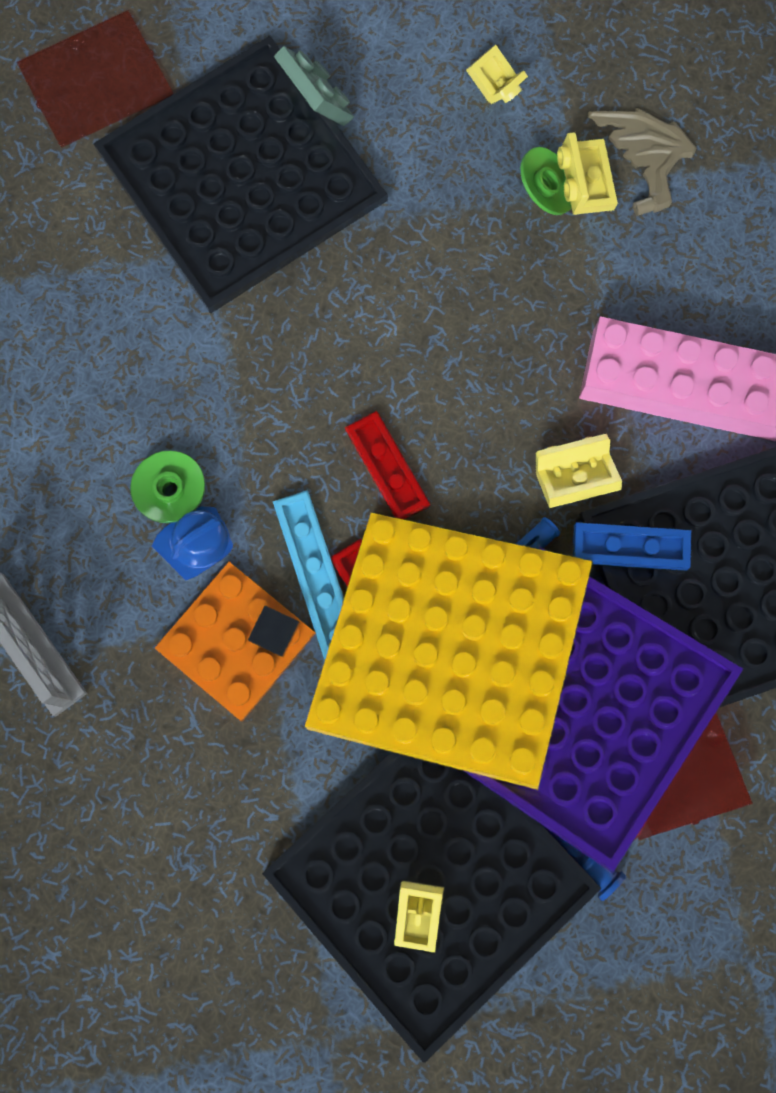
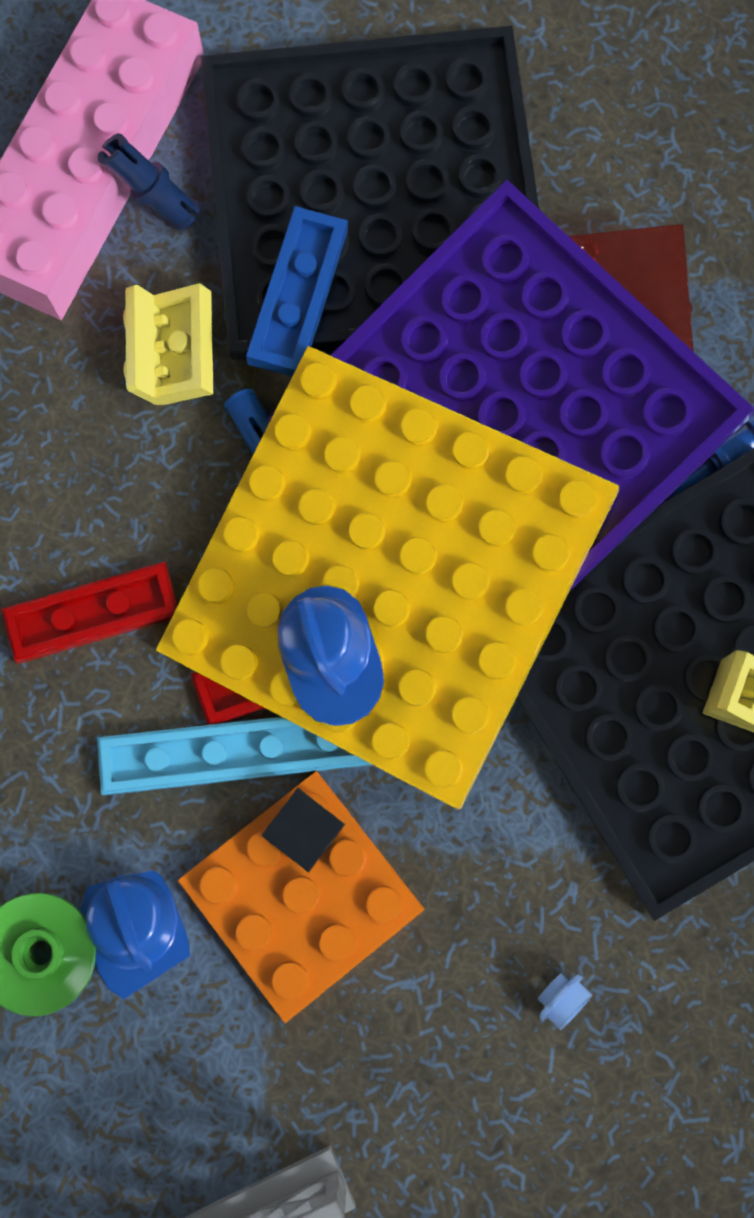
camera: 80 degrees left, 0 degrees up
(201, 823) = (563, 1000): none -> light blue plate
(386, 622) = (330, 655): none -> blue piece
(683, 430) = (148, 182): none -> dark blue pin

